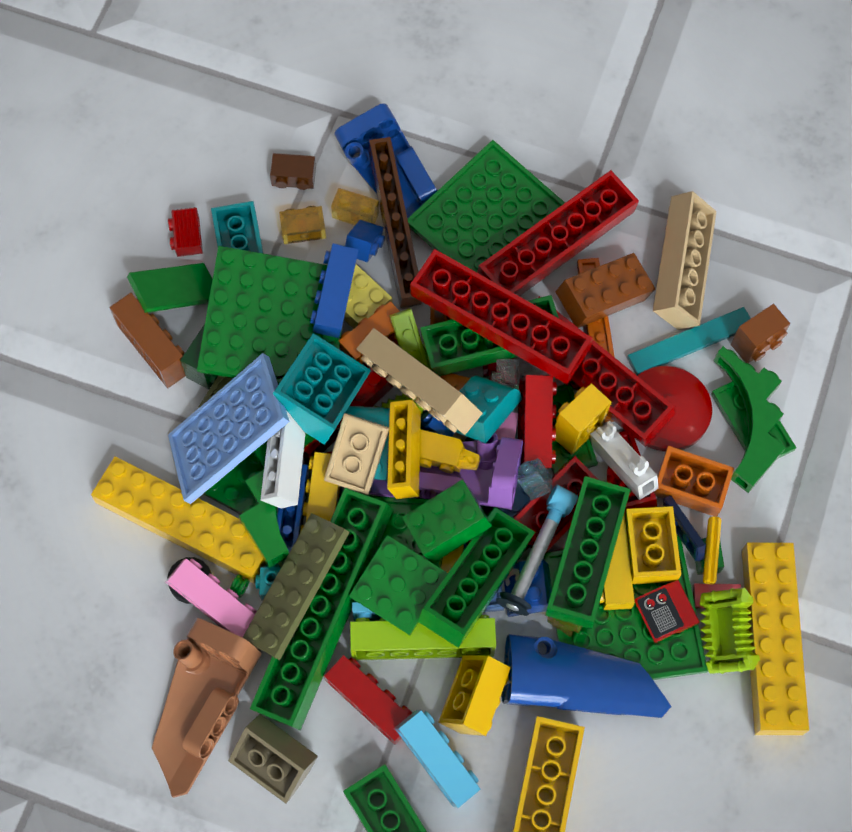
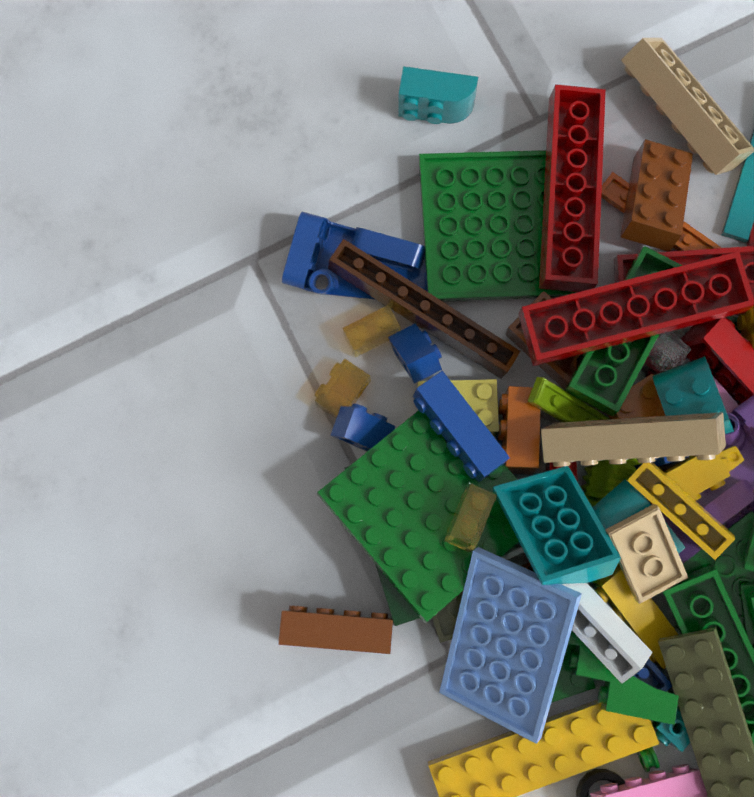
camera: 40 degrees left, 10 degrees up
(171, 287) = (305, 564): green tile -> none
(186, 232) = (251, 499): red brick -> none
(237, 227) = (303, 457): teal brick -> none
(282, 337) = (470, 518): none -> clear yellow brick
(286, 244) = (360, 428): none -> blue brick
(293, 171) = (280, 351): reddish brown brick -> none
(539, 118) = (436, 95): none -> teal brick

